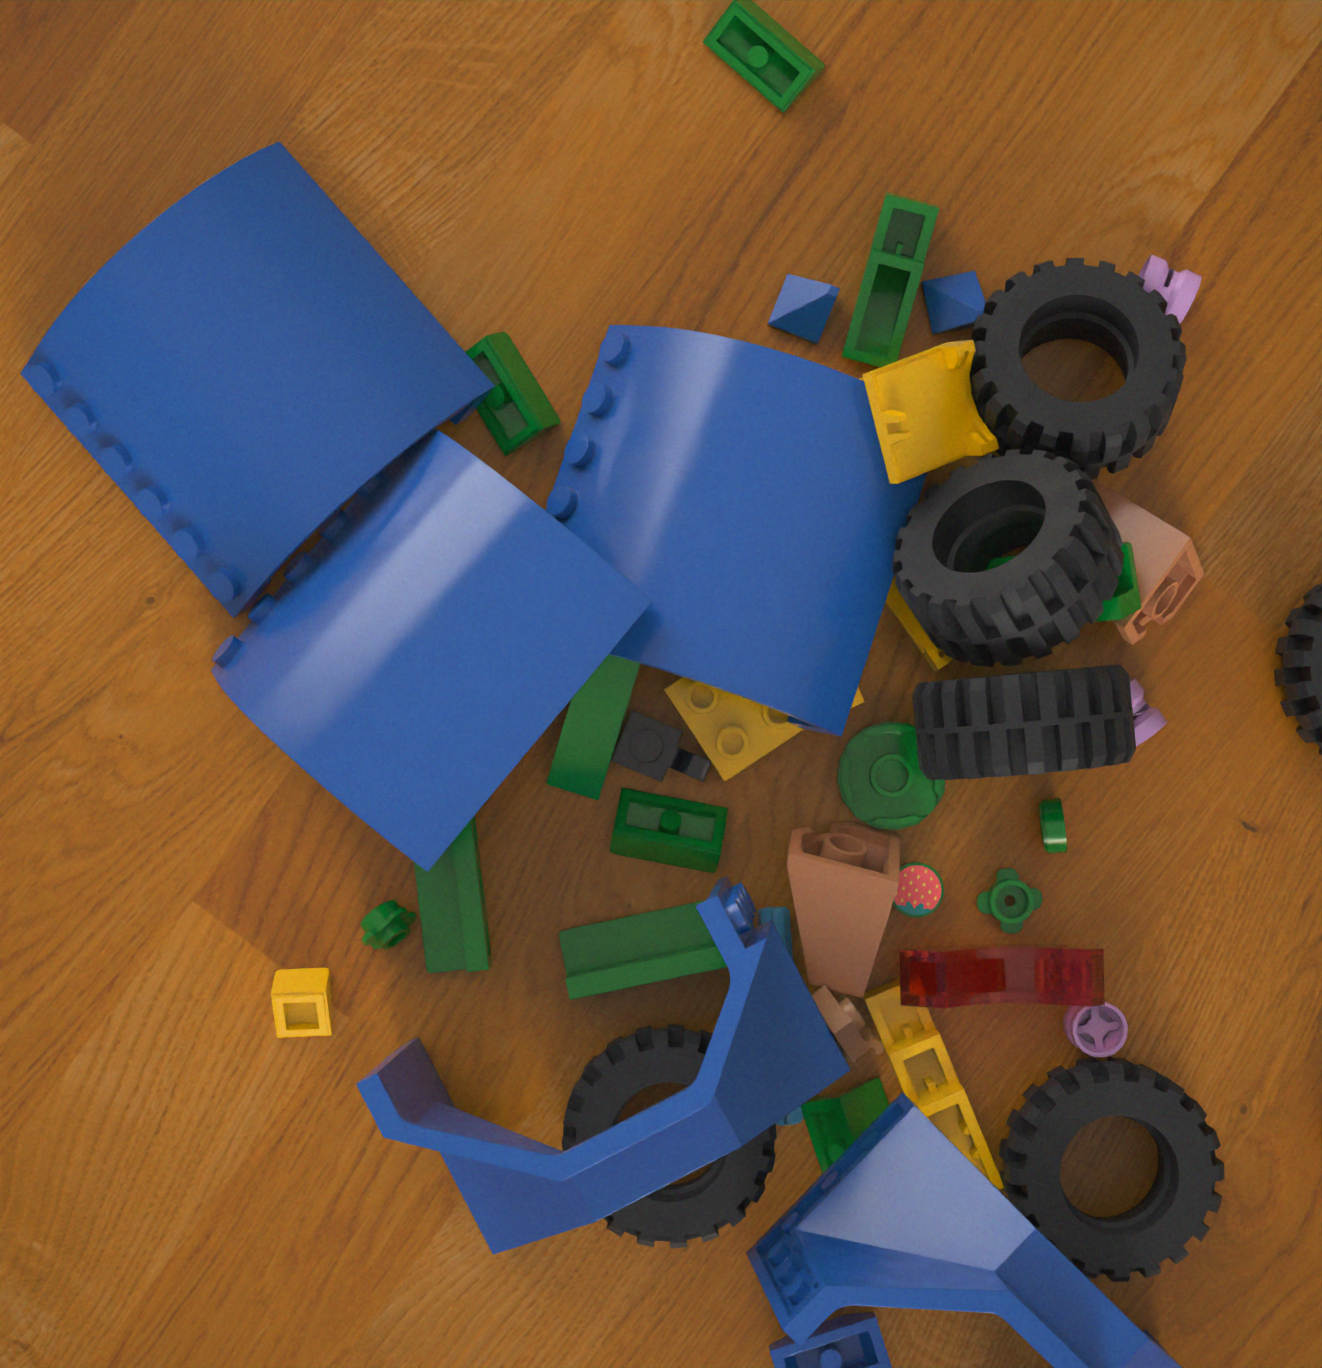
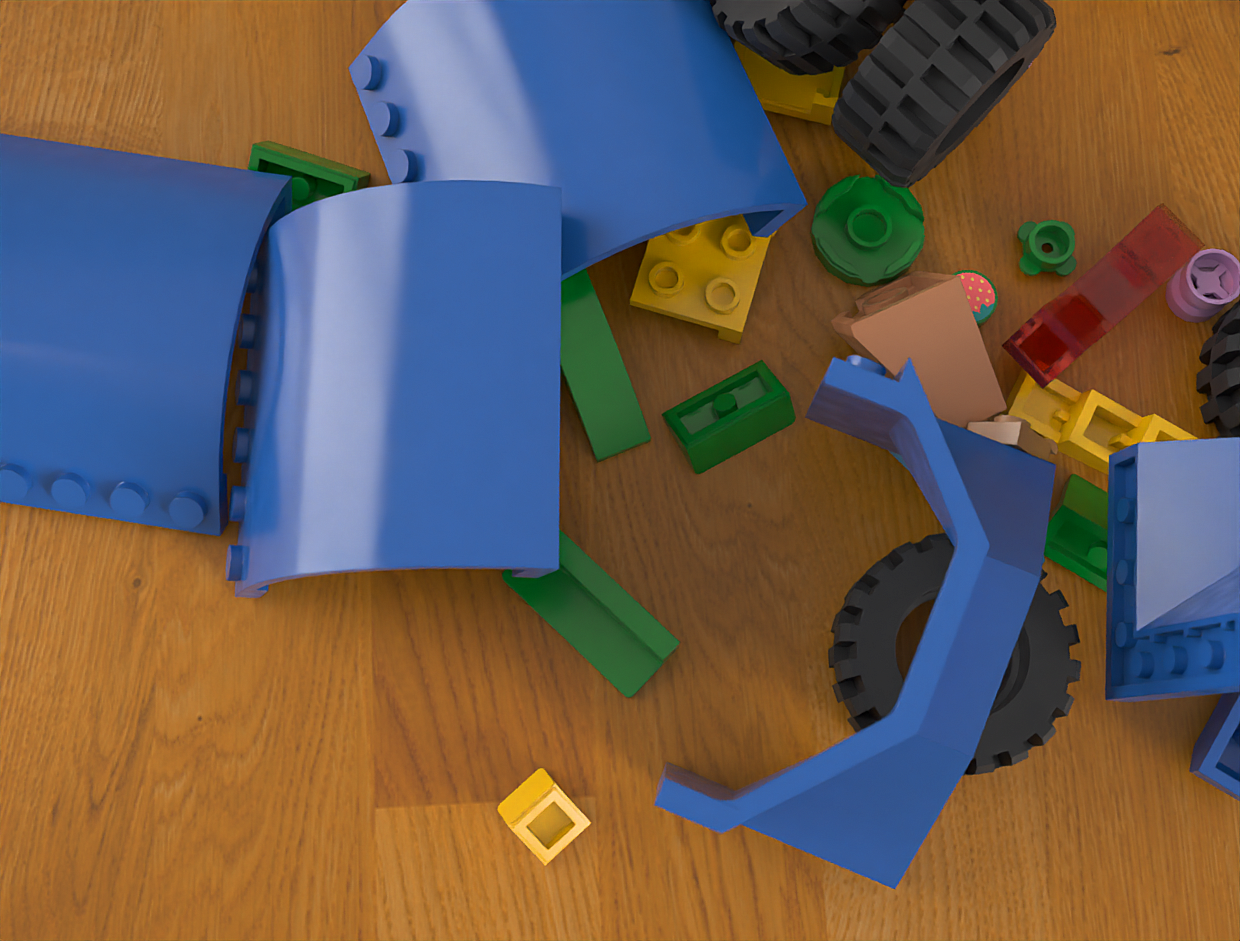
camera: 35 degrees left, 10 degrees down
(387, 925) = (561, 683): green plate -> none
(637, 950) = (792, 525): green panel -> none
(652, 748) = (660, 362): black plate -> none
(1052, 826) = (1029, 161): green tile -> none

